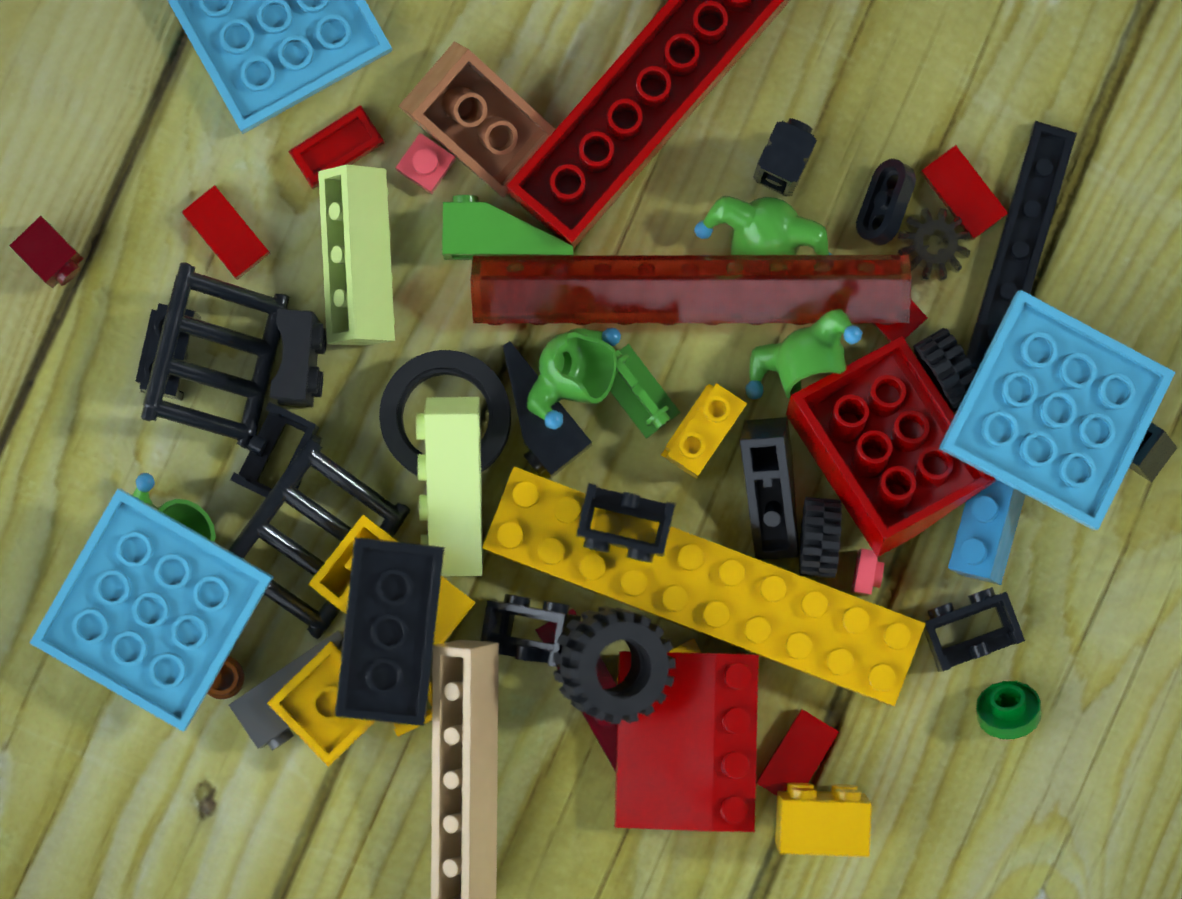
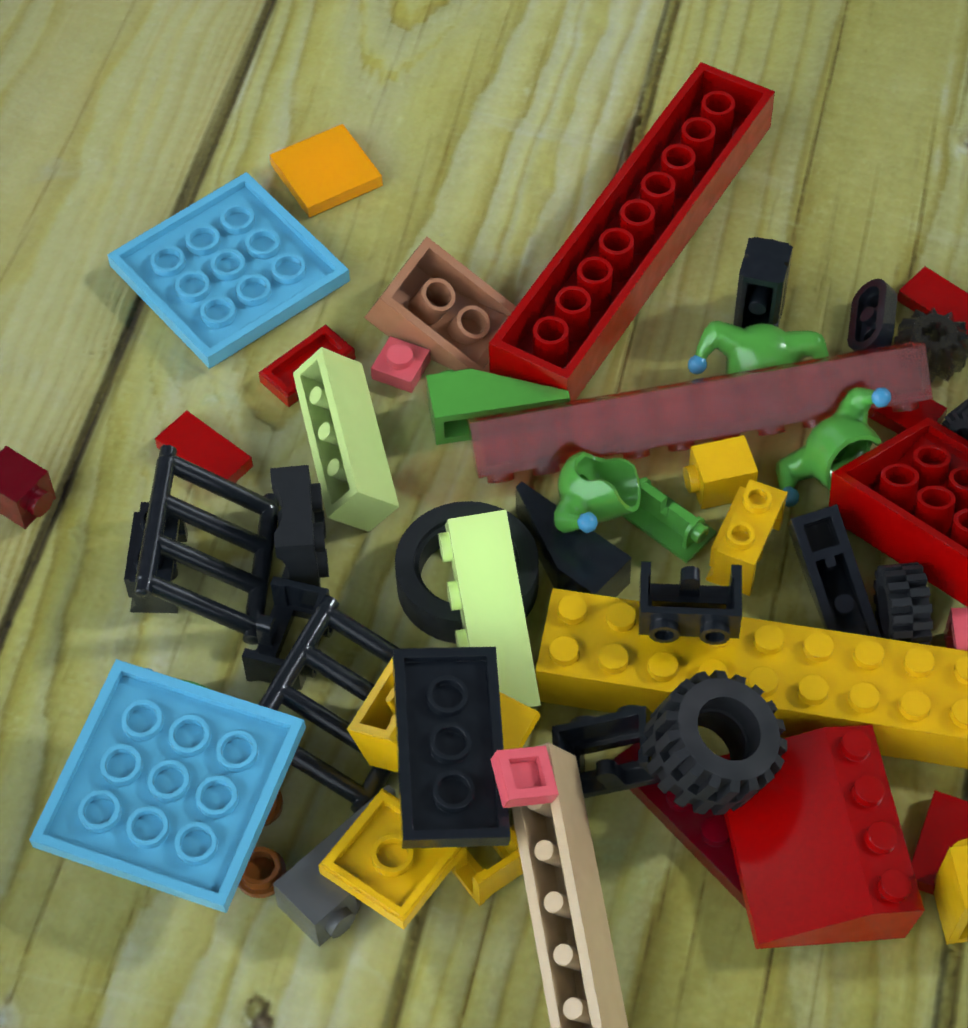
camera: 10 degrees left, 30 degrees down
(443, 681) = (524, 776): none -> coral plate
(697, 353) = (719, 470): none -> yellow brick

